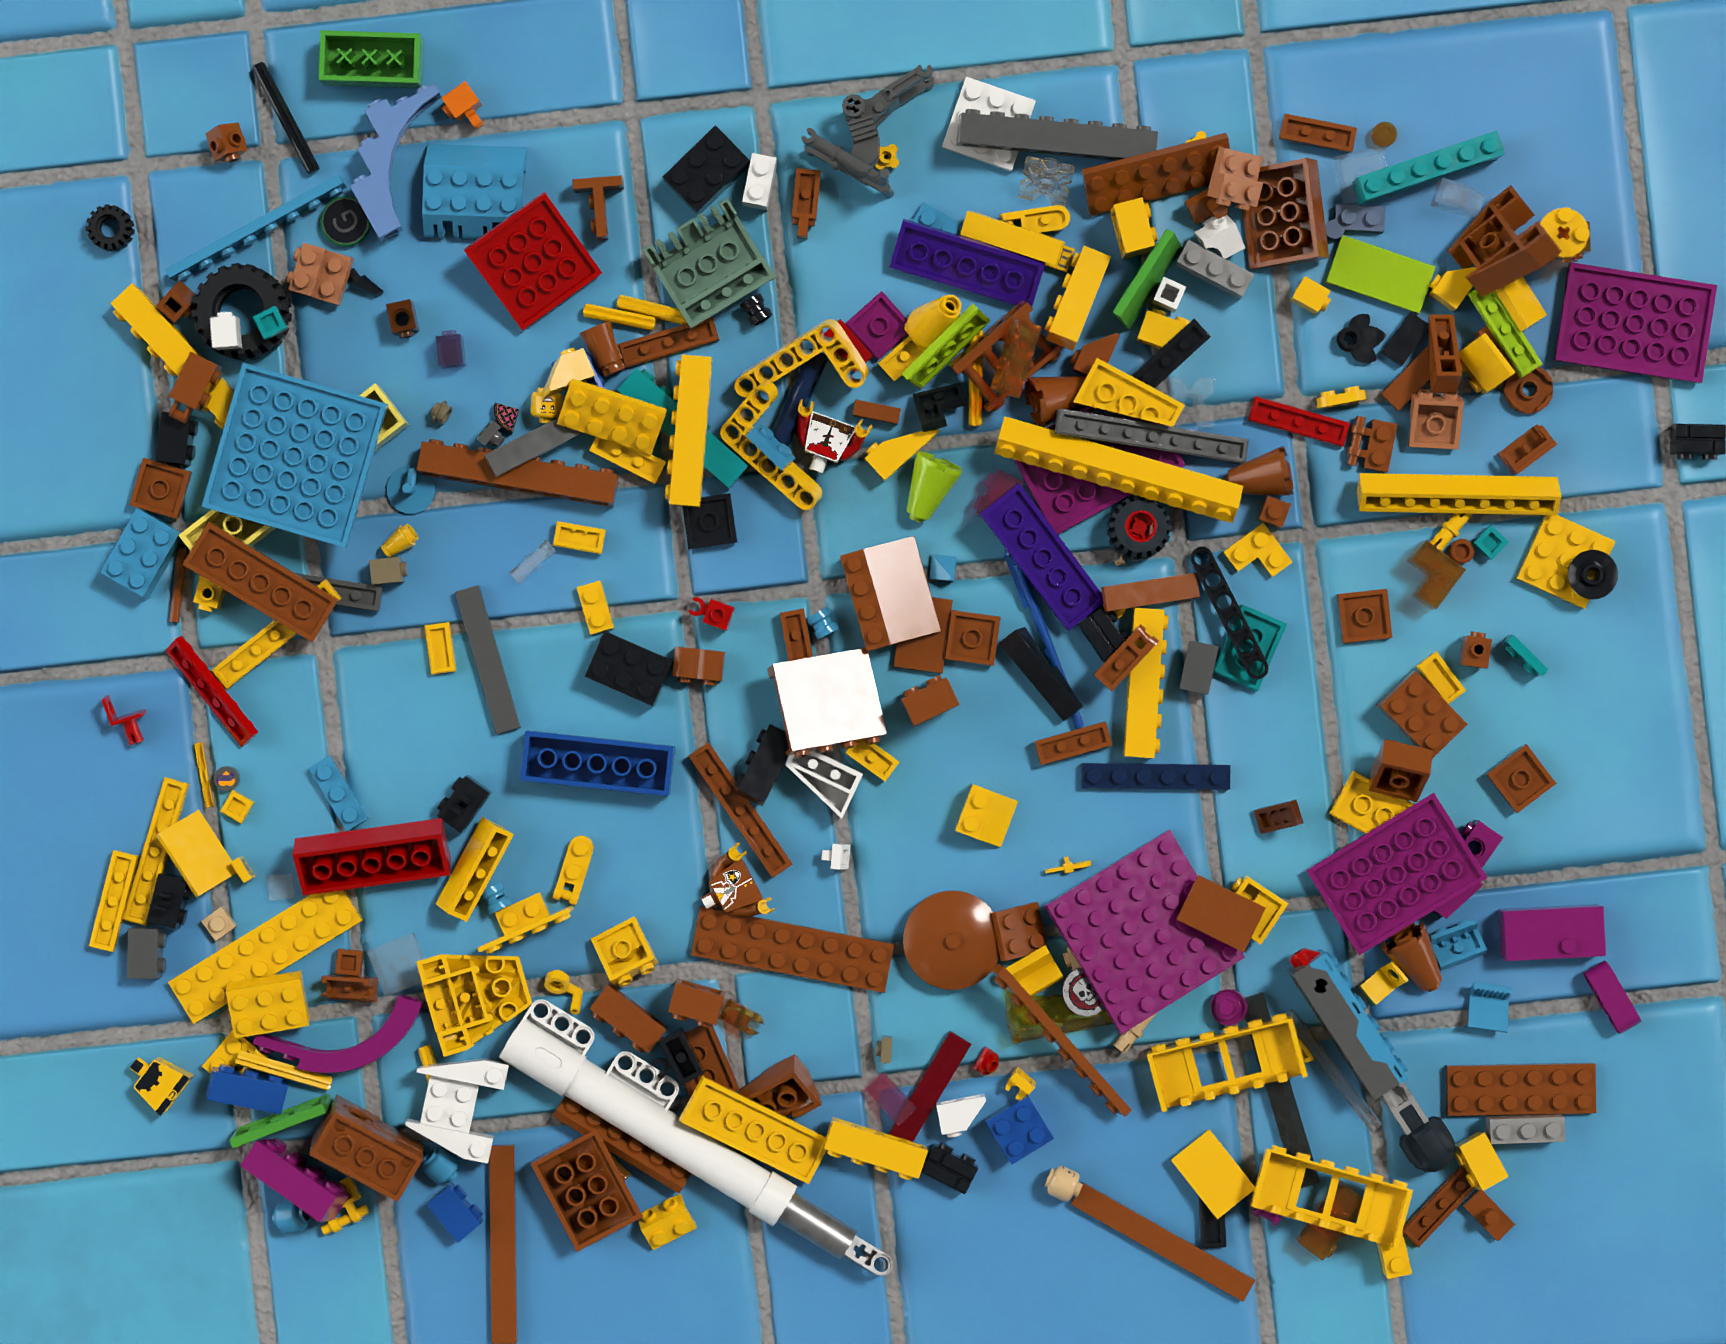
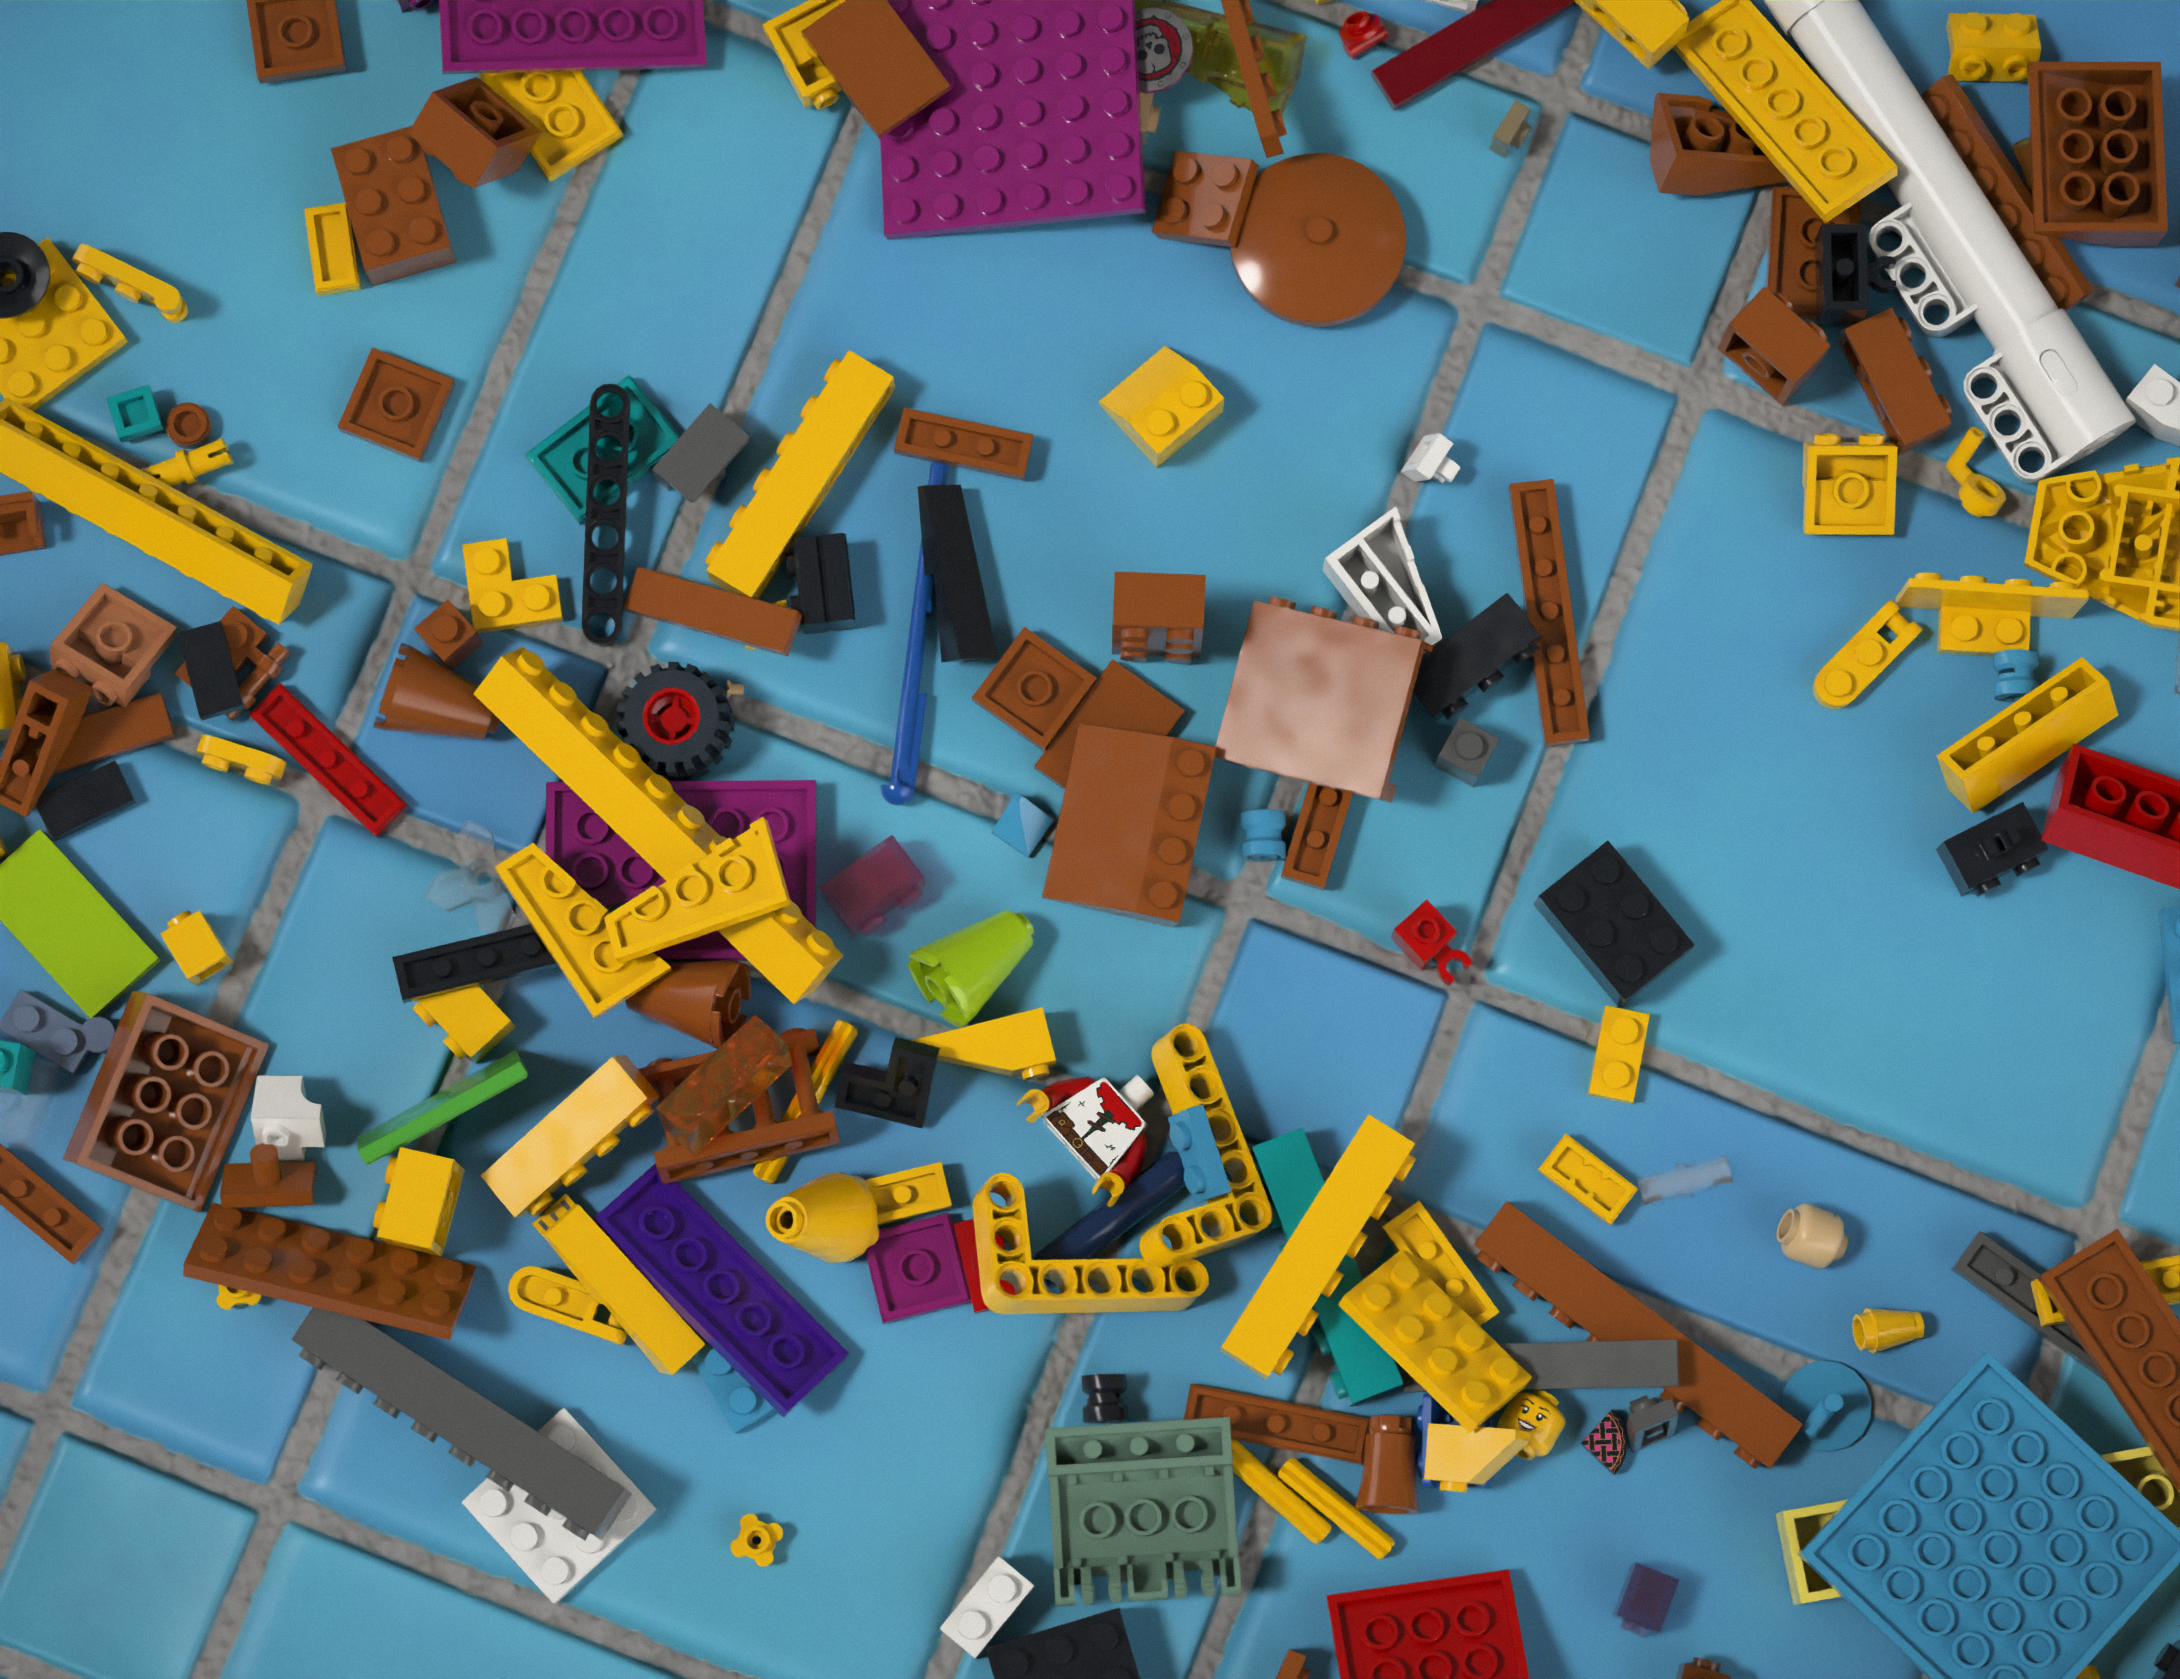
camera: 150 degrees left, 10 degrees down
(388, 570) = (1931, 1288): dark tan brick -> none
(440, 648) = (1906, 1121): yellow tile -> none
(441, 412) = (1712, 1505): dark tan plate -> none
(457, 566) = (1812, 1236): none -> tan head
(487, 659) = (1837, 1062): dark grey tile -> none
(597, 763) = (1742, 799): blue brick -> none
(698, 664) = (1497, 873): dark orange brick -> none
(711, 523) = (1359, 1084): black plate -> none
(735, 887) = (1620, 492): dark orange torso -> none
(739, 1016) = (1714, 293): clear orange piece -> none
(744, 716) = (1466, 752): none -> dark grey brick
(792, 949) = (1578, 357): dark orange plate -> none
(805, 200) = (927, 1538): dark orange hinge -> none
(864, 131) = (769, 1595): dark grey piece -> none
(874, 759) = (1291, 575): yellow plate -> none
(876, 412) = (995, 1129): dark orange piece -> none
(891, 1098) = (1541, 51): clear pink tile -> none
(946, 347) = (827, 1167): lime tile -> none
(1036, 971) = (1214, 124): yellow panel -> none
(1042, 556) = (854, 754): dark purple plate -> none
(1046, 178) = (514, 1359): clear plant -> none
(1068, 448) = (714, 893): none -> yellow wing
(1069, 866) = (1073, 261): yellow piece -> none
(1100, 349) = (598, 1039): dark orange slope -> none
(1125, 658) = (809, 522): dark orange plate -> none
(1151, 436) = (558, 837): dark grey tile -> none
(1155, 776) = (861, 328): dark blue plate -> none
(1168, 294) = (422, 1065): white brick -> none
(1214, 269) = (326, 1069): light grey brick -> none
(1236, 179) = (209, 1192): nougat plate -> none
(1278, 816) = (703, 163): reddish brown tile -> none
(1364, 338) = (150, 838): black plate -> none
(1379, 432) = (211, 670): none -> black tile
(1440, 574) = (243, 401): clear orange brick -> none
(1469, 657) = (254, 257): dark orange brick -> none
(1516, 648) = (179, 194): teal plate -> none
(1530, 606) = (130, 282): none -> yellow plate

